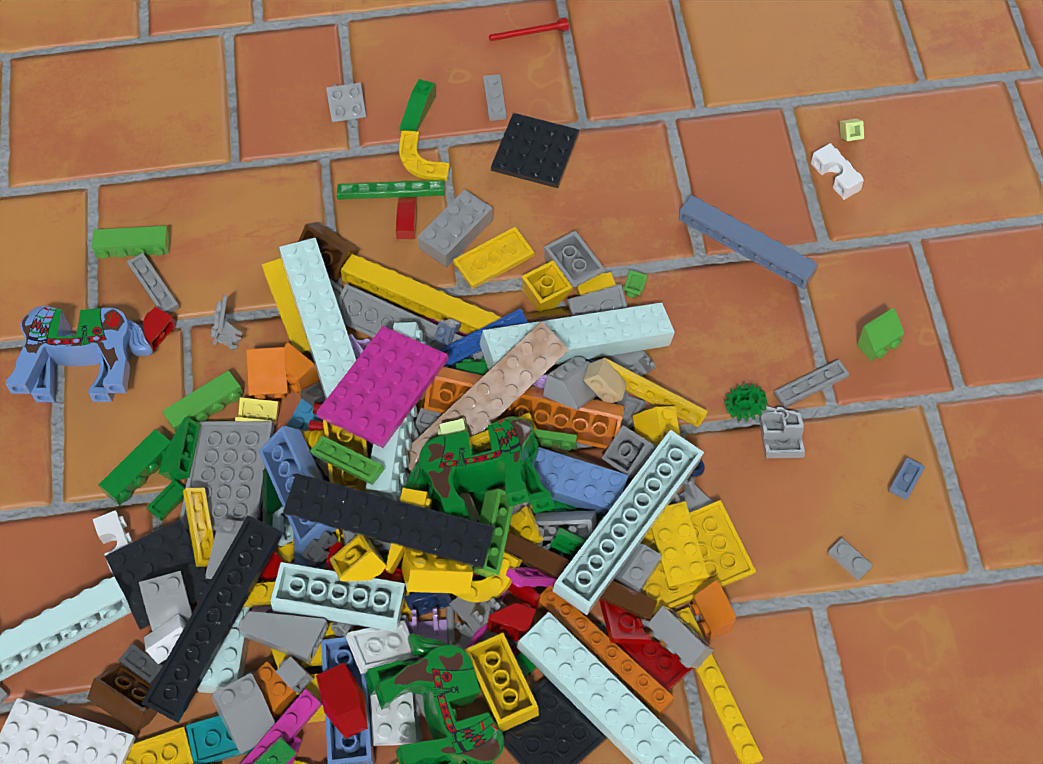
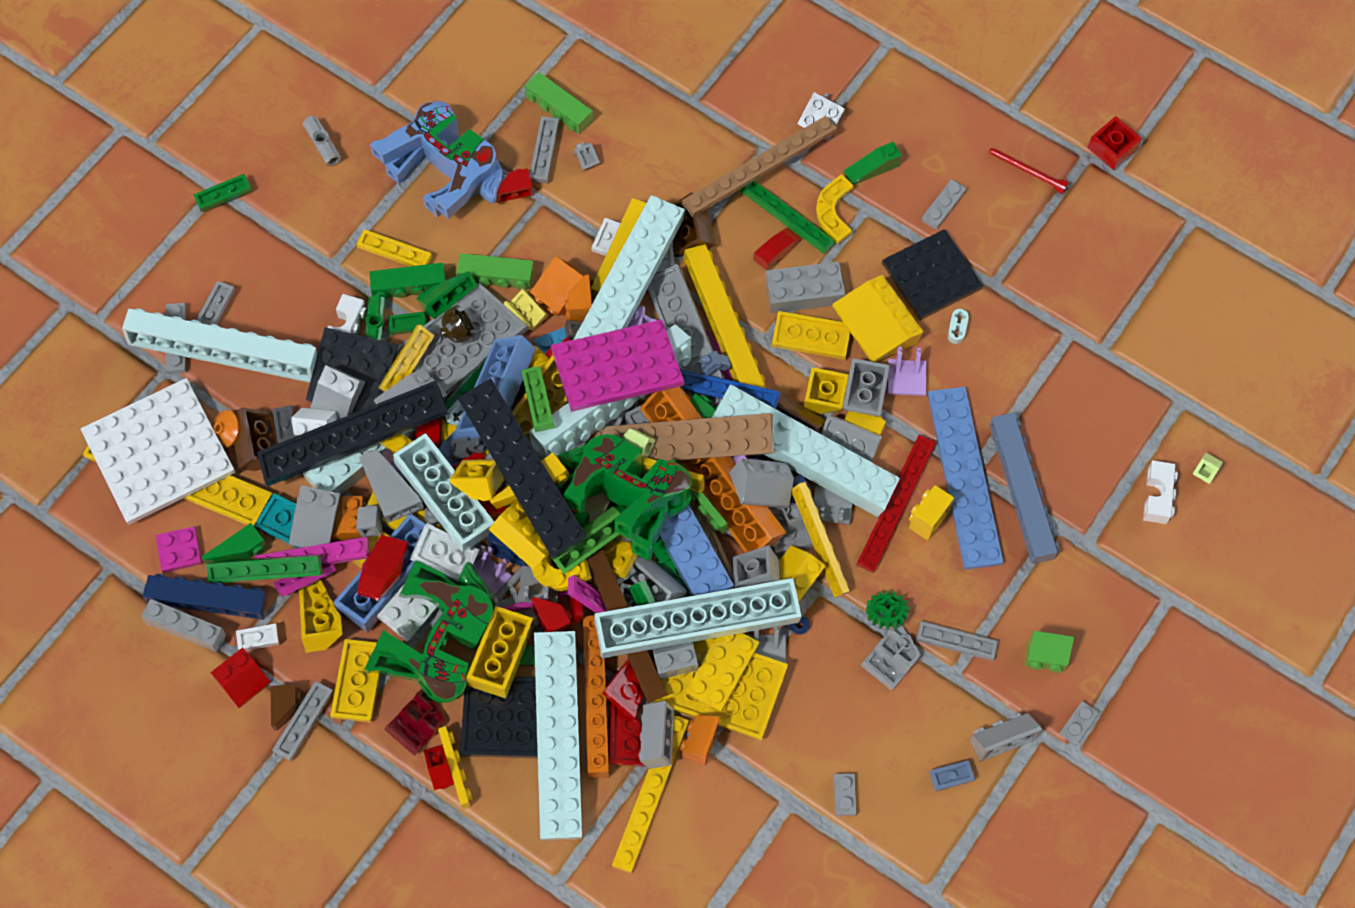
camera: 40 degrees right, 5 degrees up
(97, 705) = (226, 428): none -> orange dish
(100, 453) = (393, 249): none -> yellow plate
(134, 514) = (375, 313): none -> green piece
(191, 262) = (586, 155): none -> light grey bracket
(216, 466) = (457, 325): none -> dark brown cylinder
(223, 331) = (556, 225): light grey plate -> none
(267, 309) = (605, 236): none -> white plate
(337, 169) = (758, 166): none -> medium nougat plate
(531, 207) = (878, 319): none -> yellow slope
(590, 229) = (907, 376): none -> lavender plate
(592, 168) = (961, 327): none -> light aqua beam
(605, 381) = (788, 501): tan brick -> none
(635, 284) = (897, 447): bright green bracket -> none
(680, 342) = (891, 515): none -> red tile
(701, 269) = (965, 478): none -> medium blue plate
(706, 308) = (930, 512): none -> yellow brick
(913, 418) = (1004, 736): none -> light grey slope
(947, 368) = (1078, 723): none -> light grey plate

